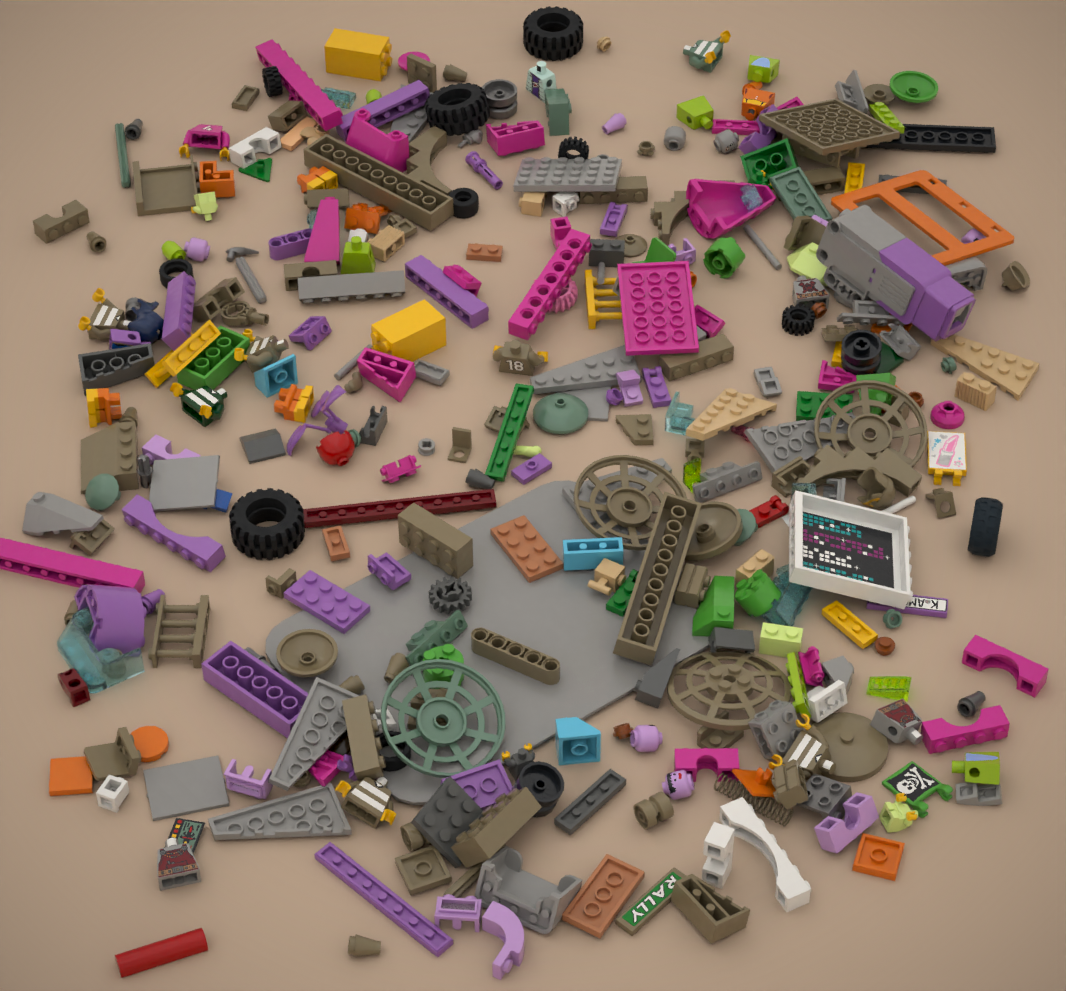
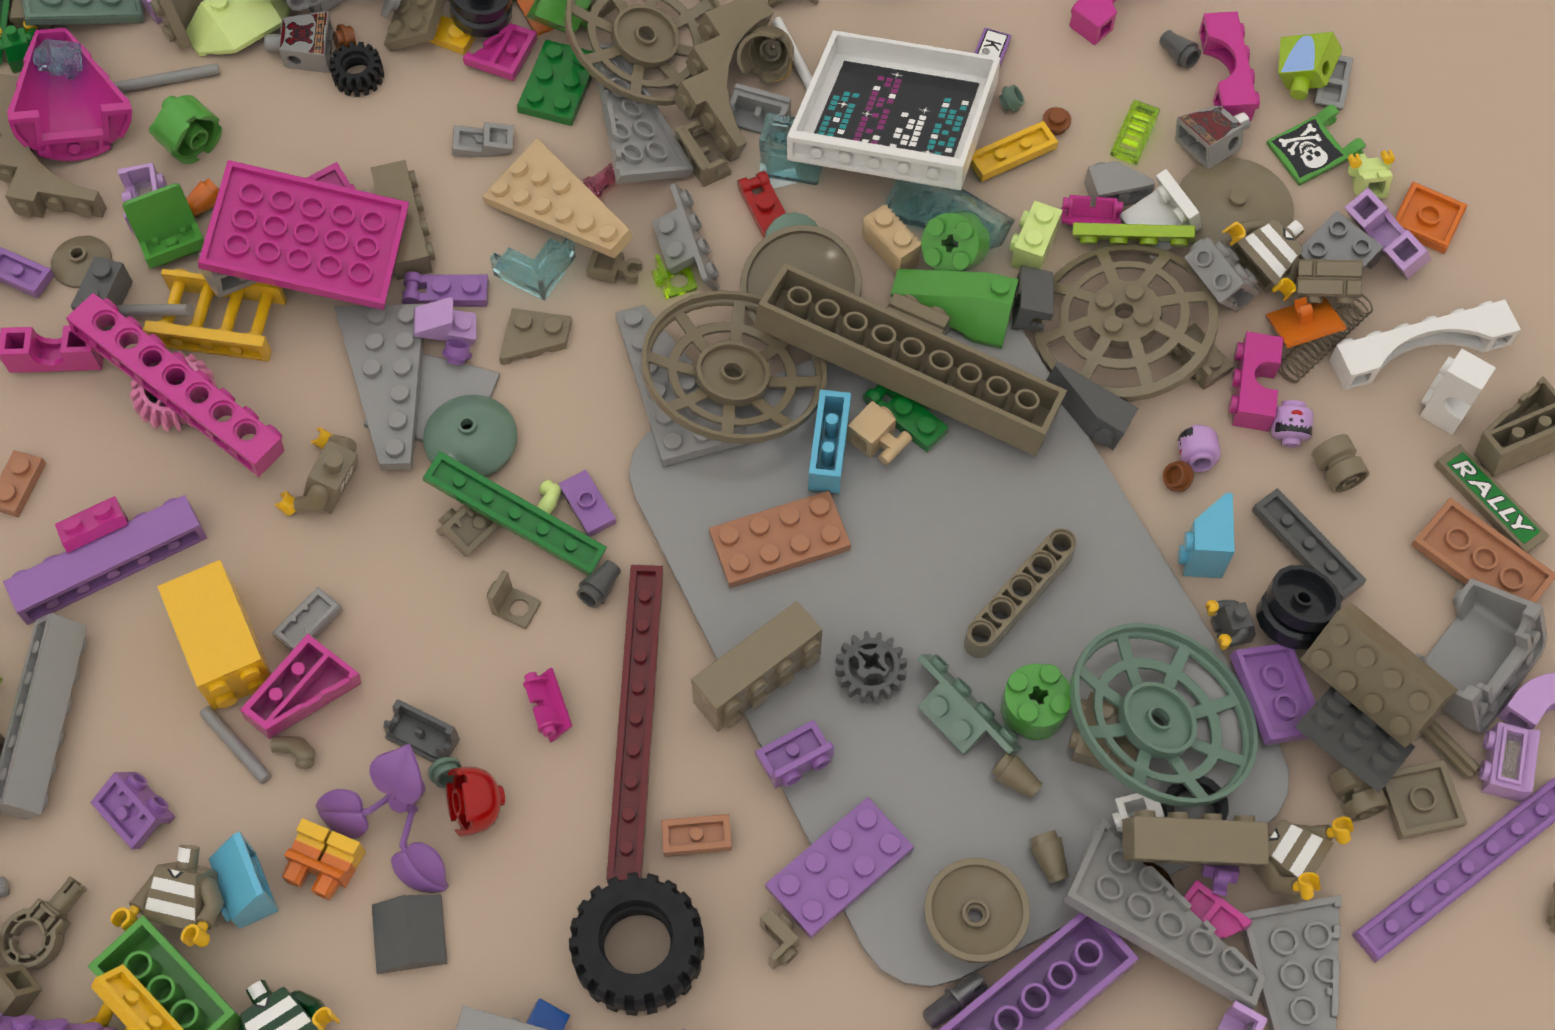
camera: 80 degrees left, 20 degrees up
(426, 443) = (495, 646): light grey bush -> none

